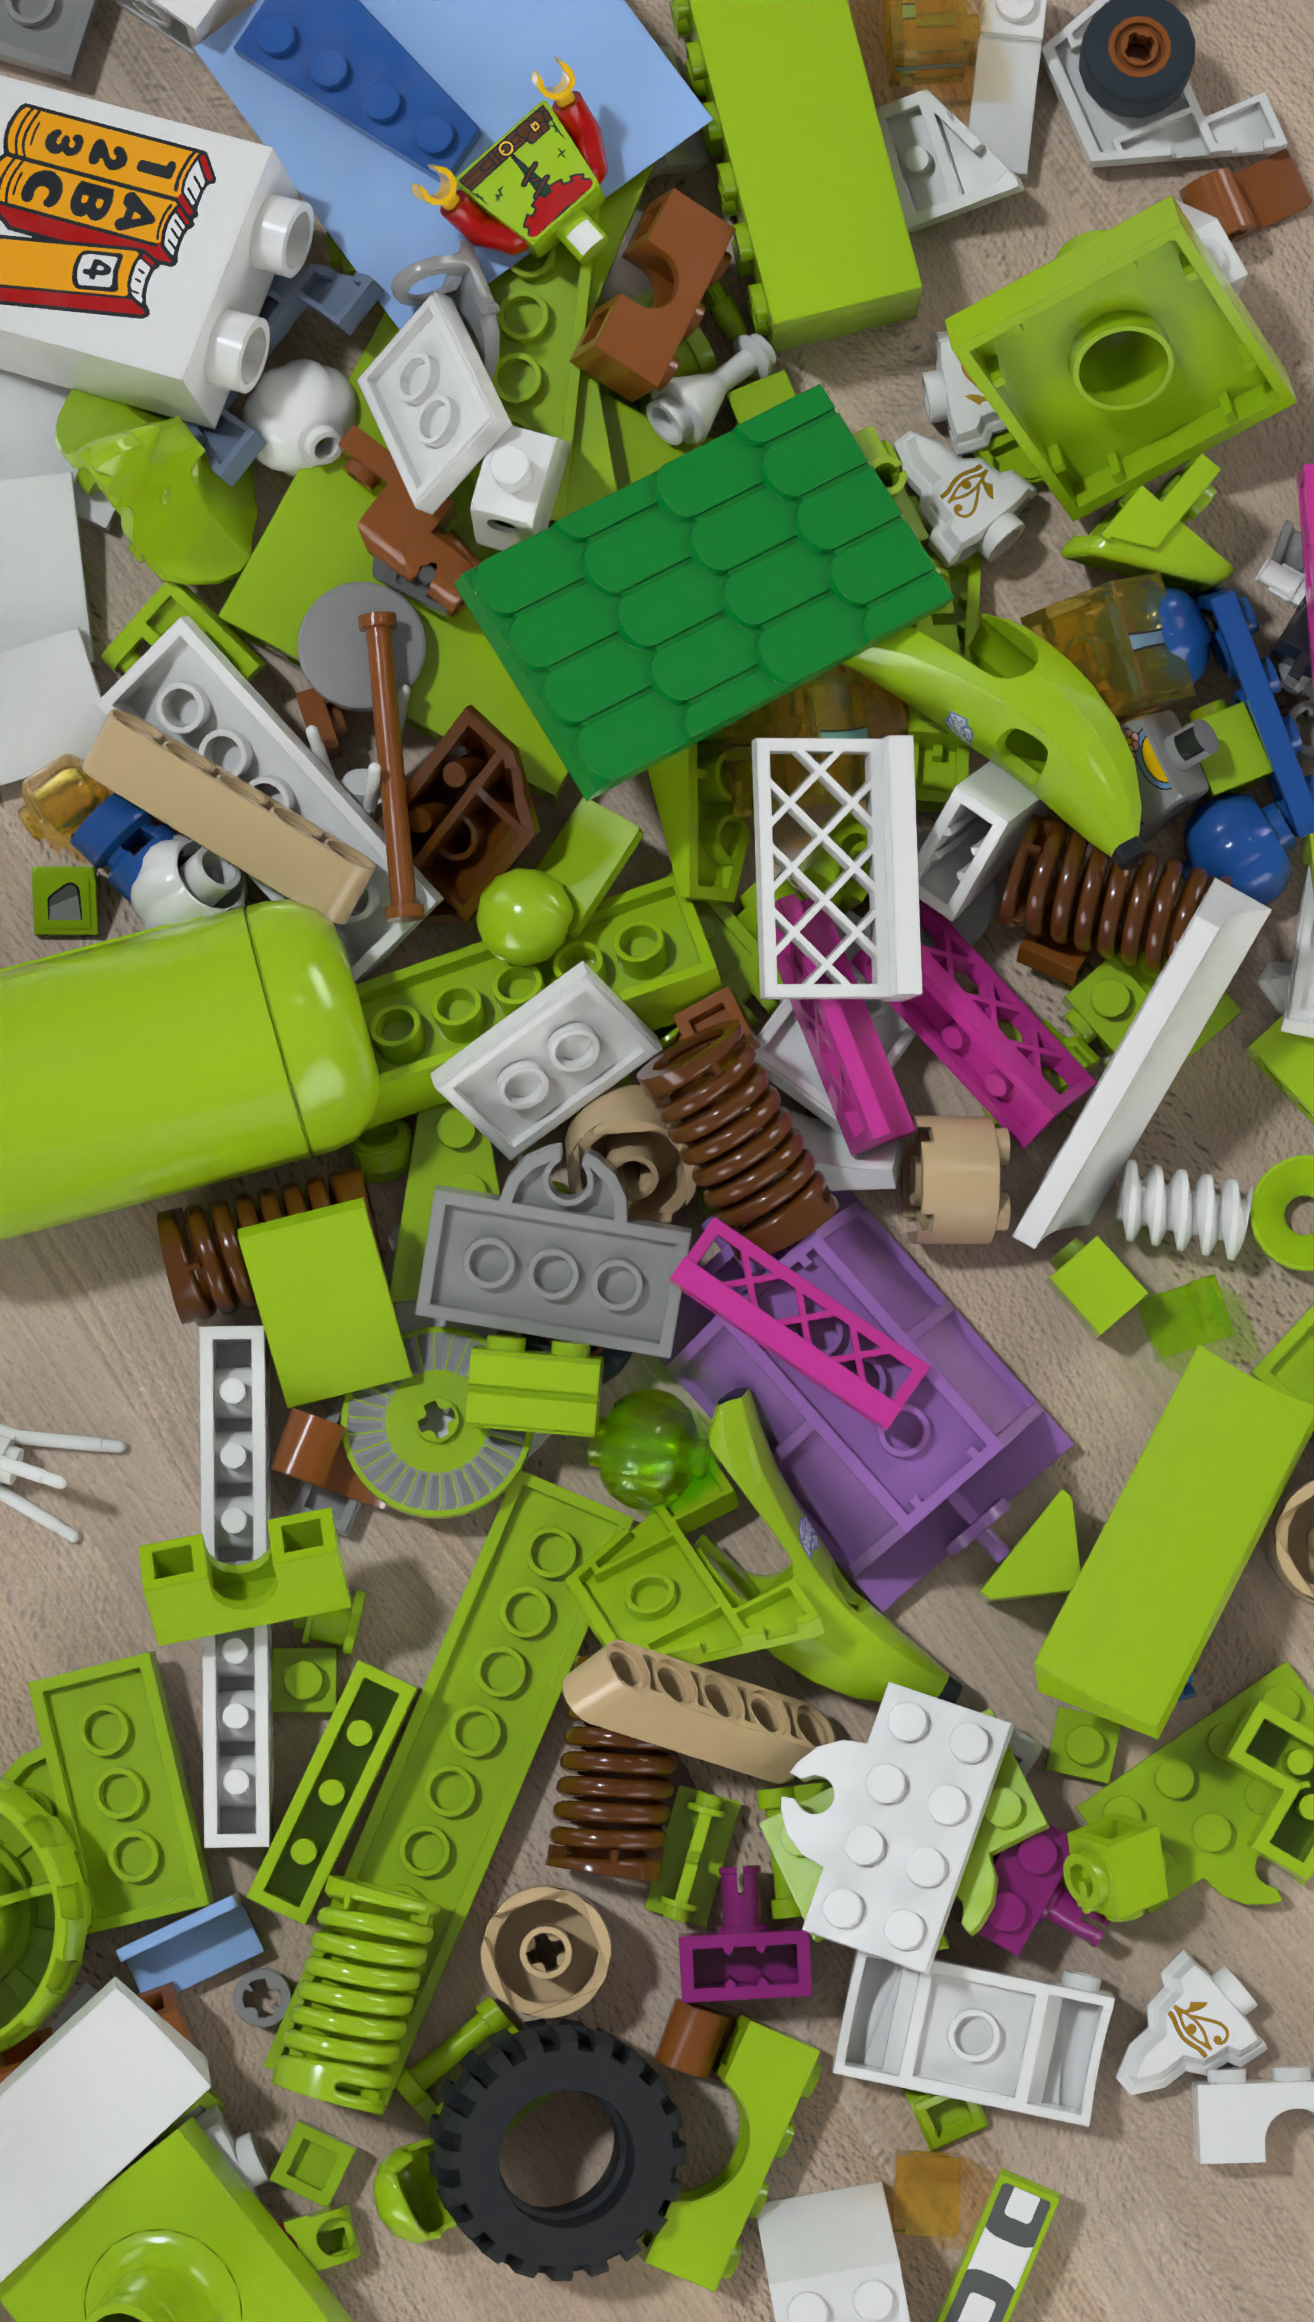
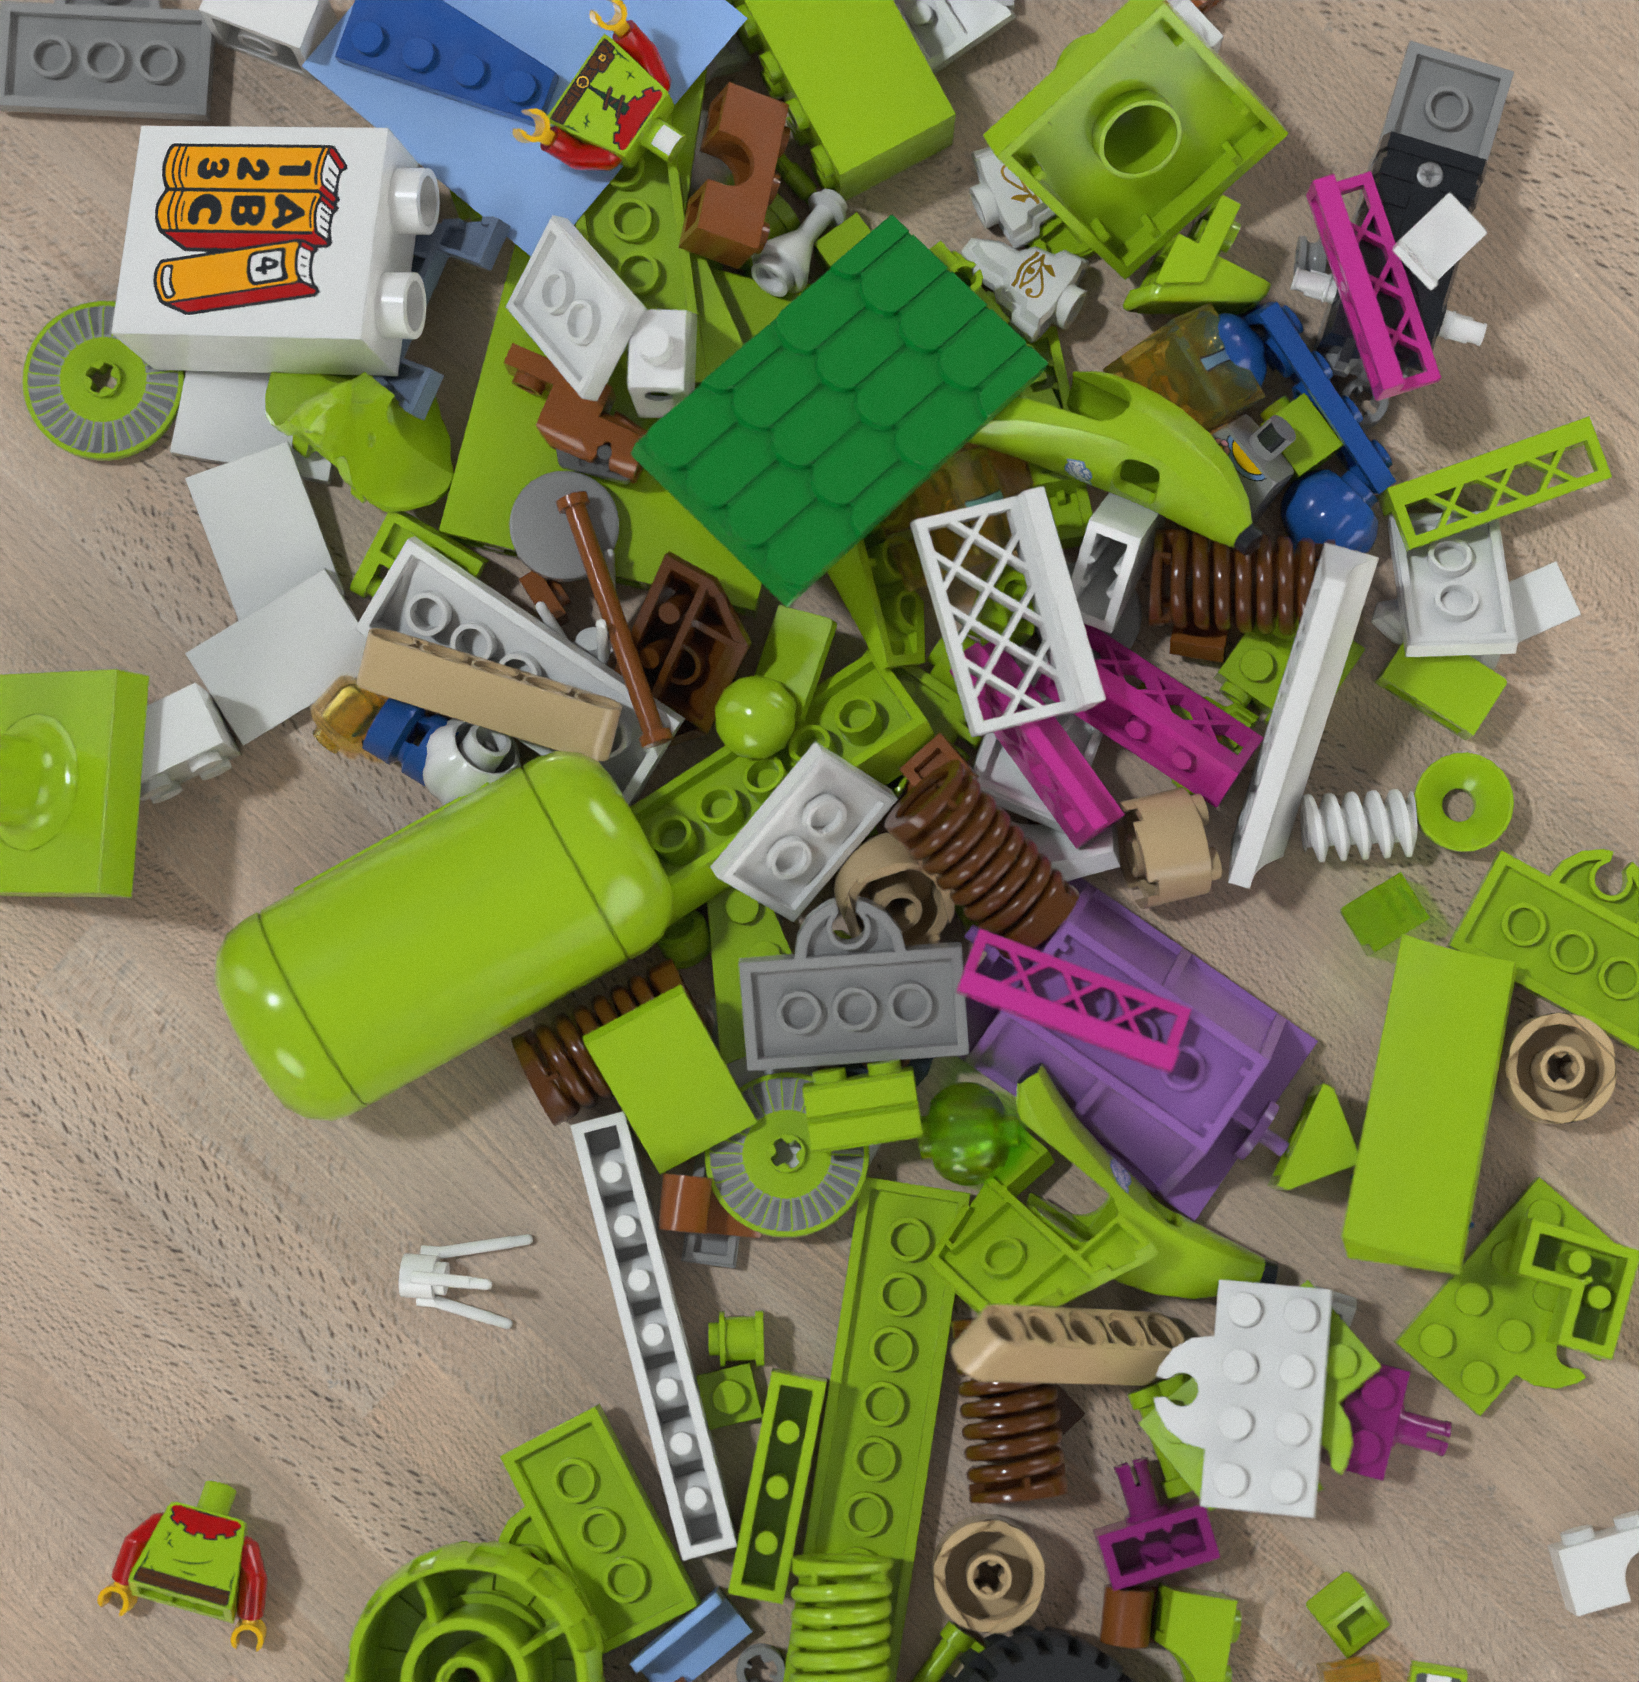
camera: 10 degrees left, 0 degrees up
(65, 900) = (370, 797): lime slope -> none
(201, 1597) = (631, 1351): lime arch -> none
(296, 410) = (462, 343): white plant -> none
(470, 290) = (578, 206): light grey piece -> none
(692, 1855) = (1089, 1462): lime hinge -> none
(976, 2035) = (1364, 1555): white piece -> none
(1082, 1745) = (1387, 1290): lime plate -> none
(1094, 1284) = (1301, 905): lime brick -> none
(1116, 1867) = (1446, 1386): lime brick -> none
(1192, 2027) = (1537, 1502): white rock -> none

